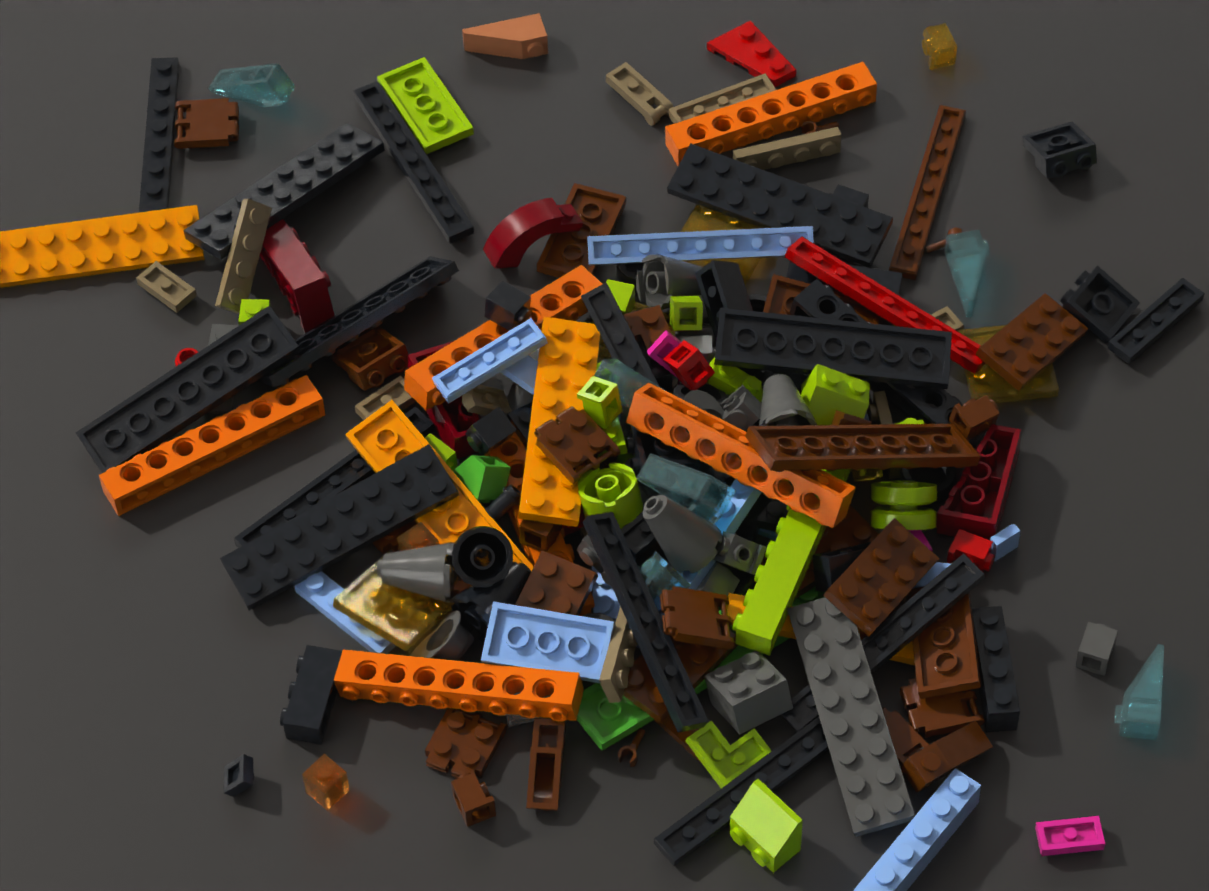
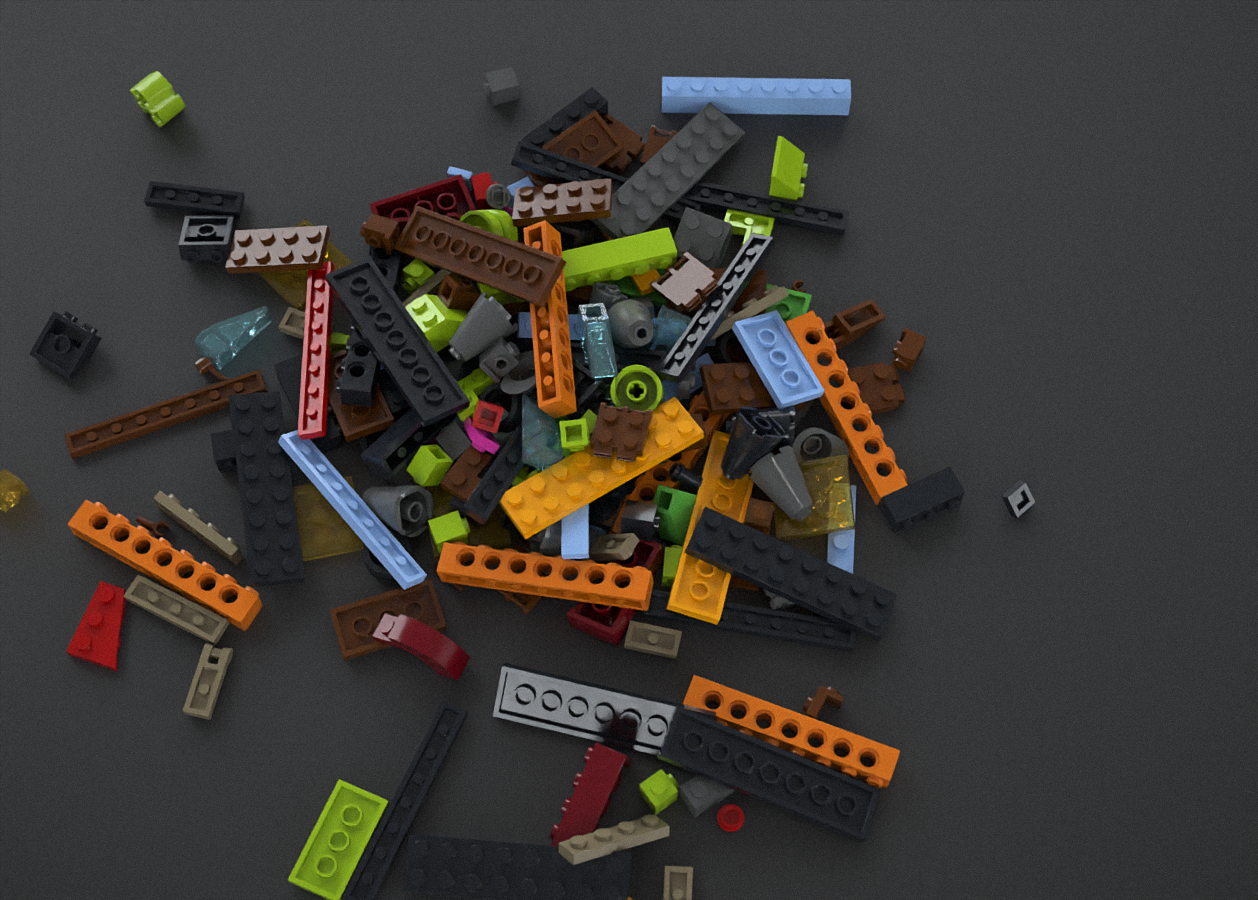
camera: 130 degrees left, 10 degrees up
(215, 489) = (823, 695): none -> reddish brown bracket
(325, 782) = (976, 440): clear orange brick -> none
(372, 357) = (625, 671): reddish brown plate -> none
(489, 360) = (594, 540): light blue tile -> none
(507, 306) = (530, 572): black brick -> none
(511, 38) = (211, 819): nougat slope -> none
(940, 534) = (494, 196): none -> dark grey wheel
(945, 755) = (658, 111): reddish brown slope -> none
(1070, 836) = (648, 30): dark pink plate -> none
(1141, 703) = (519, 43): clear light blue slope -> none

